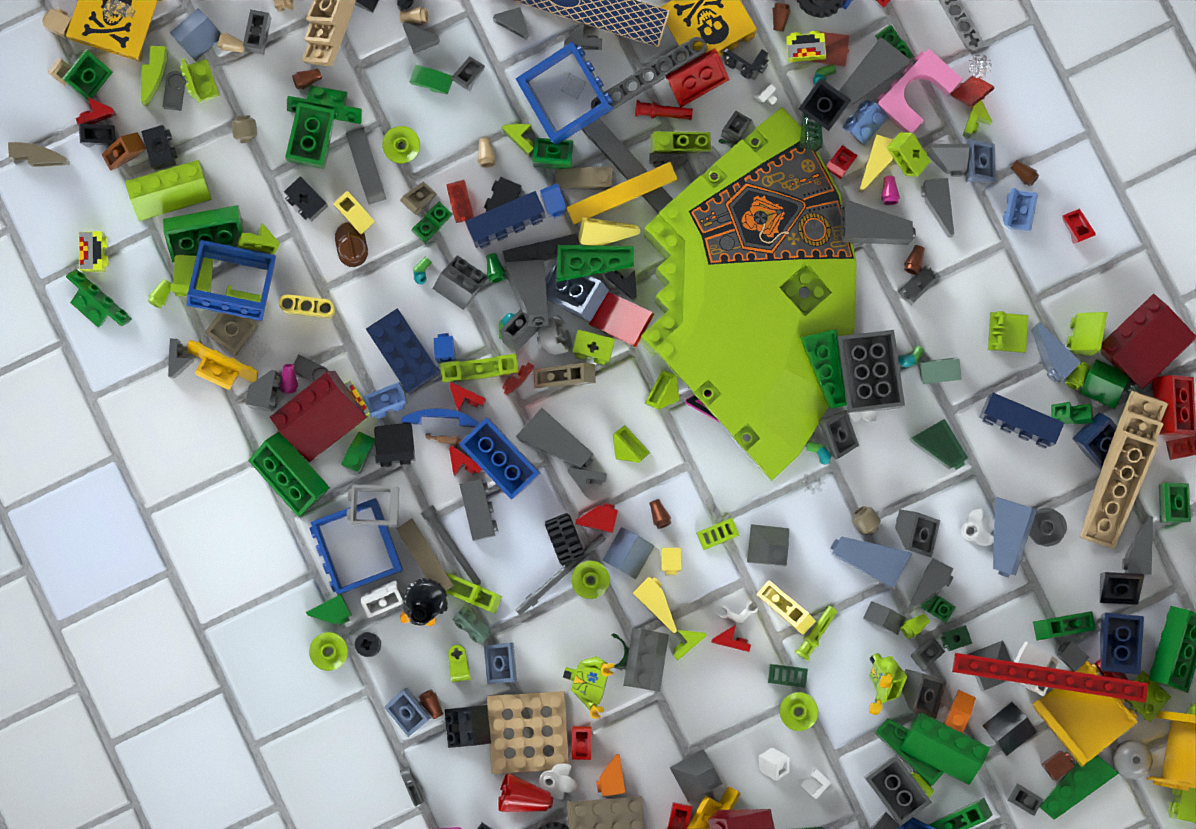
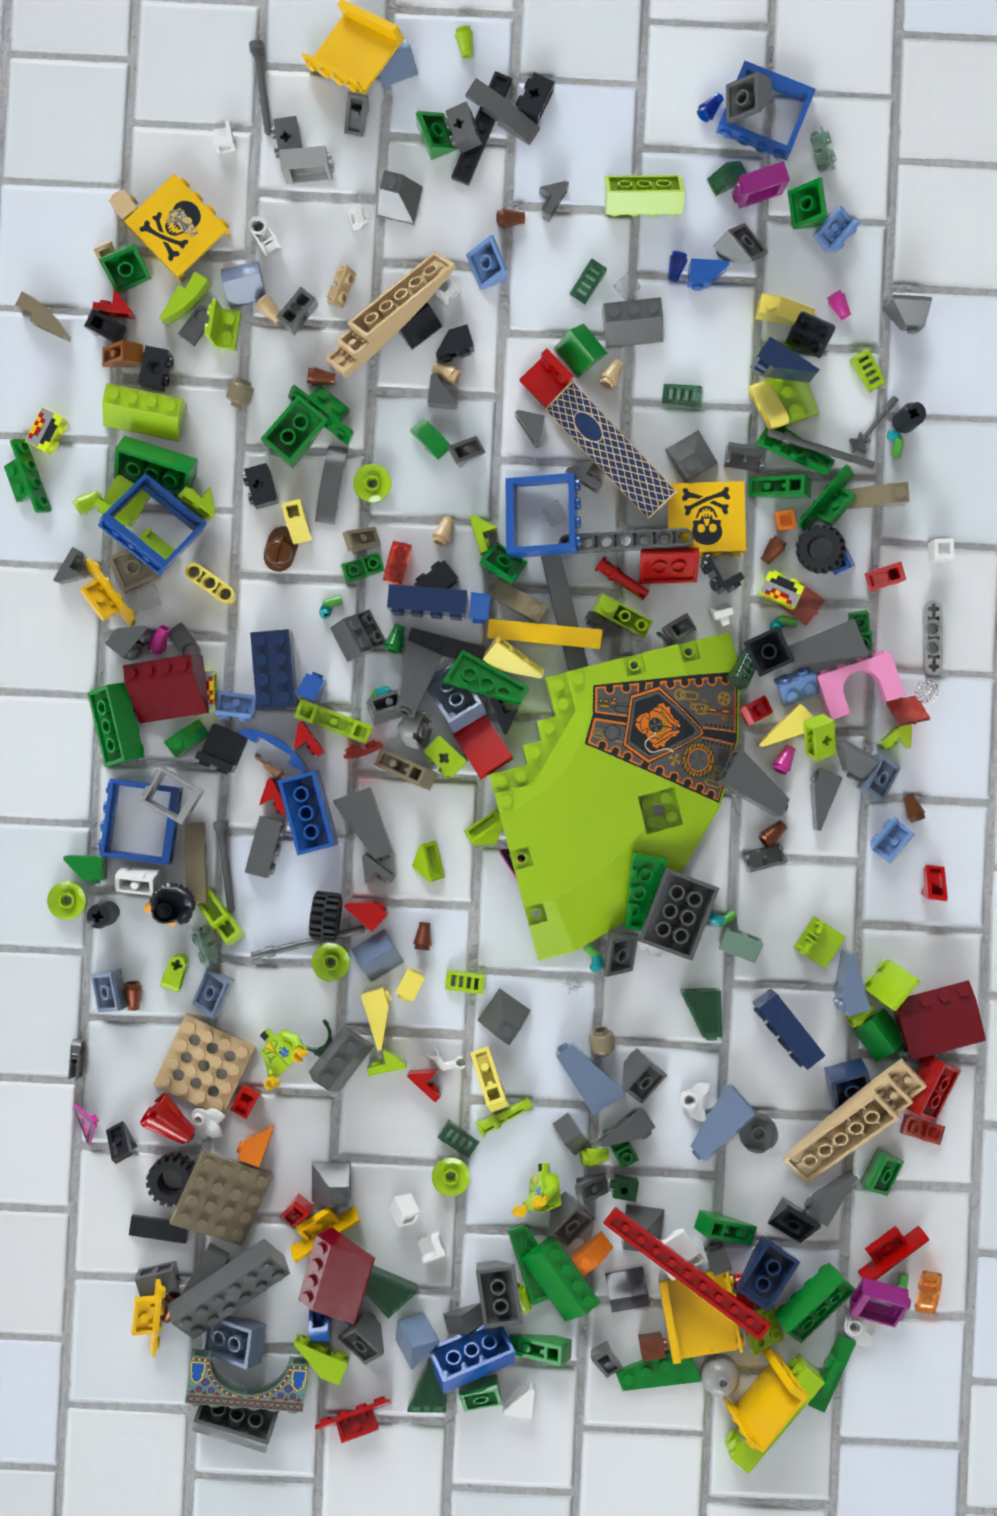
camera: 25 degrees right, 5 degrees up
(467, 726) = (153, 1032): black slope -> none
(1072, 414) = (835, 1046): green slope -> none

